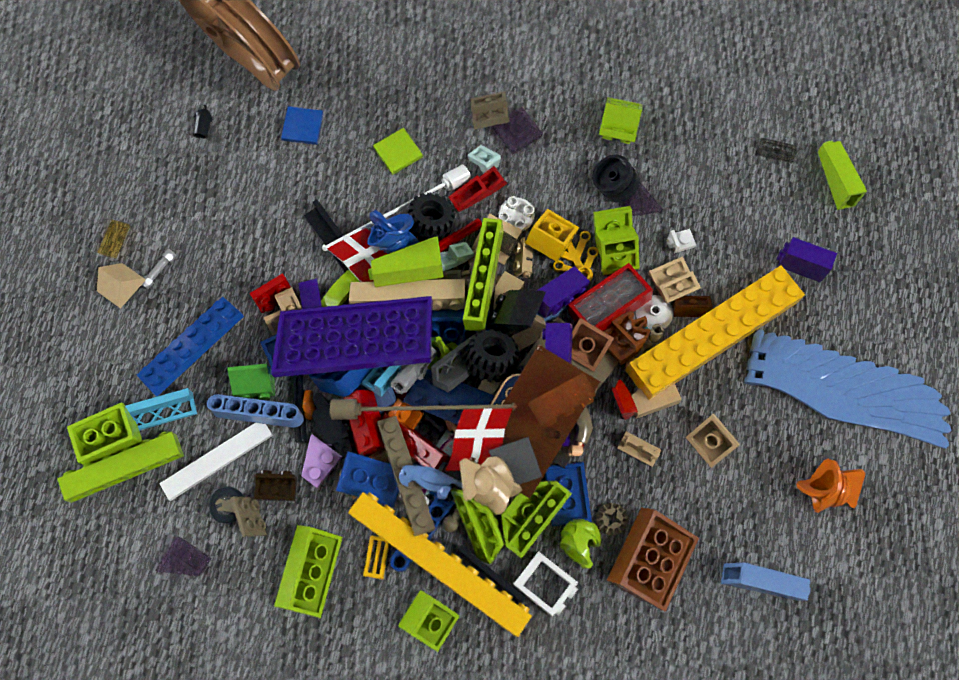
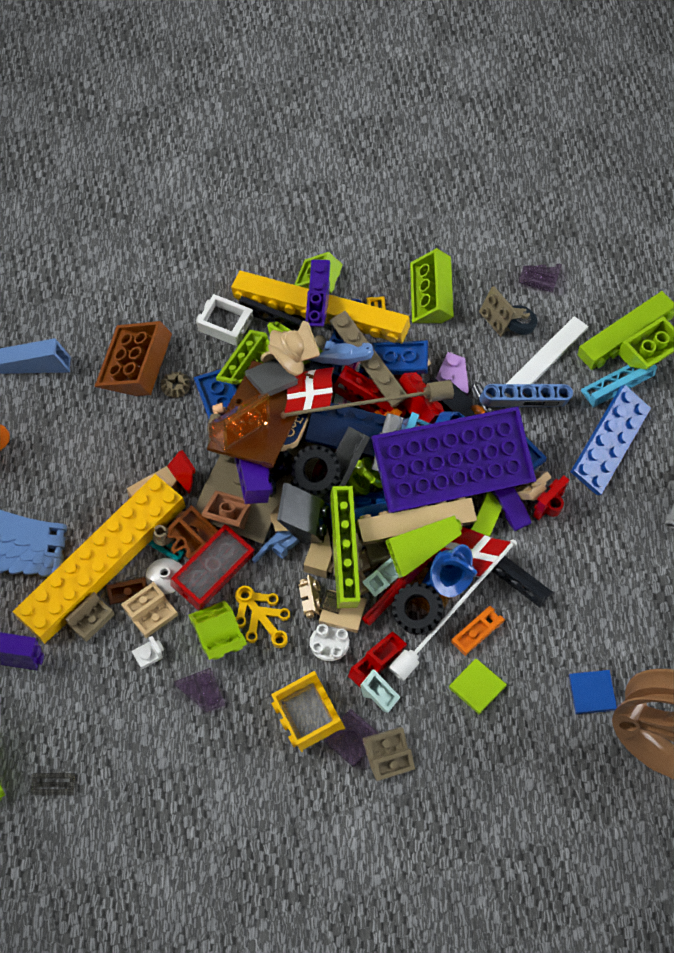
camera: 165 degrees right, 10 degrees down
(252, 381) = (541, 419): bright green slope -> none
(275, 486) = (484, 344): dark brown bracket -> none
(382, 195) = (477, 631): none -> orange plate
(439, 564) = (318, 293): none -> dark purple slope
(550, 152) = (306, 711): none -> window
(551, 235) = (285, 619): yellow slope -> none
(562, 291) = (264, 561): dark purple brick -> none
(575, 540) = (203, 357): lime helmet -> none
(616, 178) = (229, 693): black wheel -> none
(620, 120) = (236, 770): lime bracket -> none
(639, 449) = (159, 445): tan hinge -> none
(712, 440) = (91, 464): tan slope -> none
(730, 281) = (89, 617): none -> dark tan bracket

